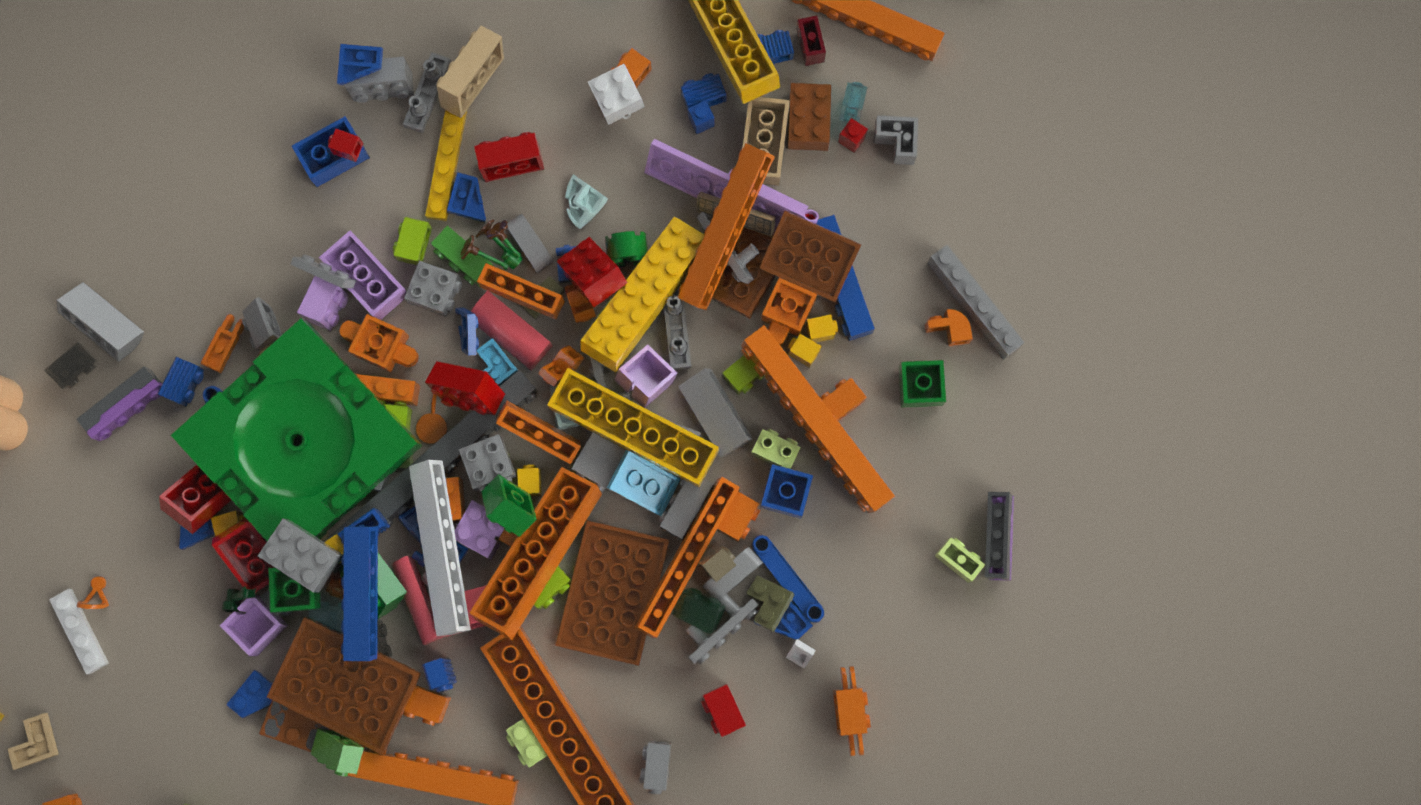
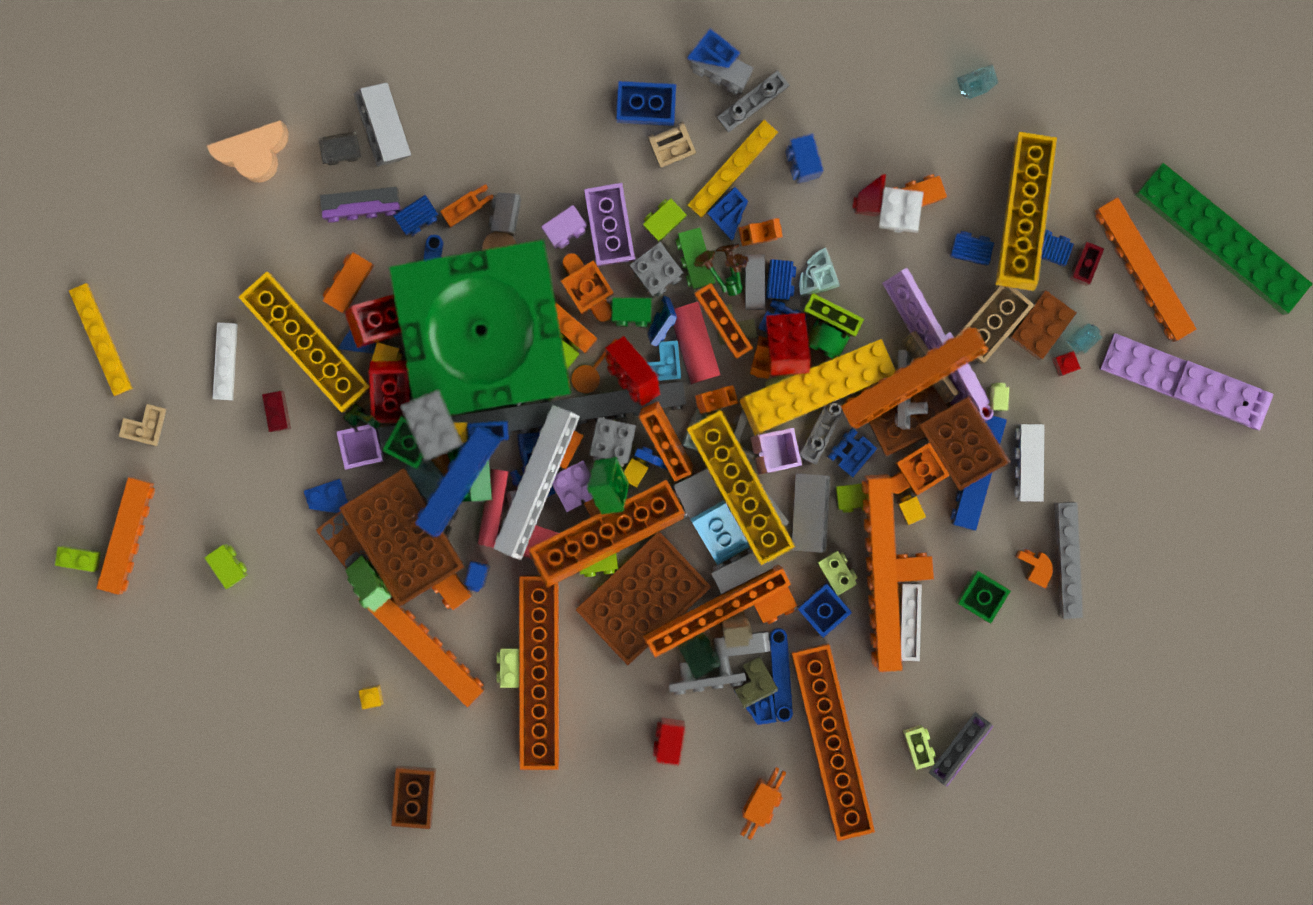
camera: 25 degrees right, 10 degrees up
(97, 583) = (260, 333): orange piece -> none
(142, 562) = (305, 341): none -> yellow brick
(151, 480) = (347, 282): none -> orange brick
(154, 645) = (276, 411): none -> dark red brick
(323, 271) = (581, 205): light grey plate -> none
(345, 145) = (661, 111): red brick -> none
(383, 177) = (675, 150): none -> tan plate
(432, 337) = (631, 311): none -> green brick
(470, 71) = (799, 111): tan brick -> none
(501, 106) = (804, 159): none -> blue brick
(507, 197) = (760, 232): none -> orange brick
(509, 156) = (784, 202): red brick -> none
(535, 457) = (646, 454): none -> blue wing
(550, 226) = (779, 280): none -> blue brick
(584, 105) = (870, 199): none -> red slope
(609, 223) = (833, 315): none -> lime brick
(657, 766) = (597, 744): light grey brick -> none
(701, 117) = (956, 268): blue brick -> none
(723, 338) = (856, 457): none -> blue plate
(800, 653) = (753, 736): white plate -> none
(814, 198) = (998, 396): none -> yellowish green brick
(821, 328) = (936, 501): yellow brick -> none
(873, 449) = (910, 621): none -> white plate
(878, 609) = (833, 742): none -> orange brick
(881, 240) = (1030, 462): none -> white brick
(901, 133) = (1105, 390): light grey brick -> none
(970, 84) = (1187, 381): none -> lavender hinge

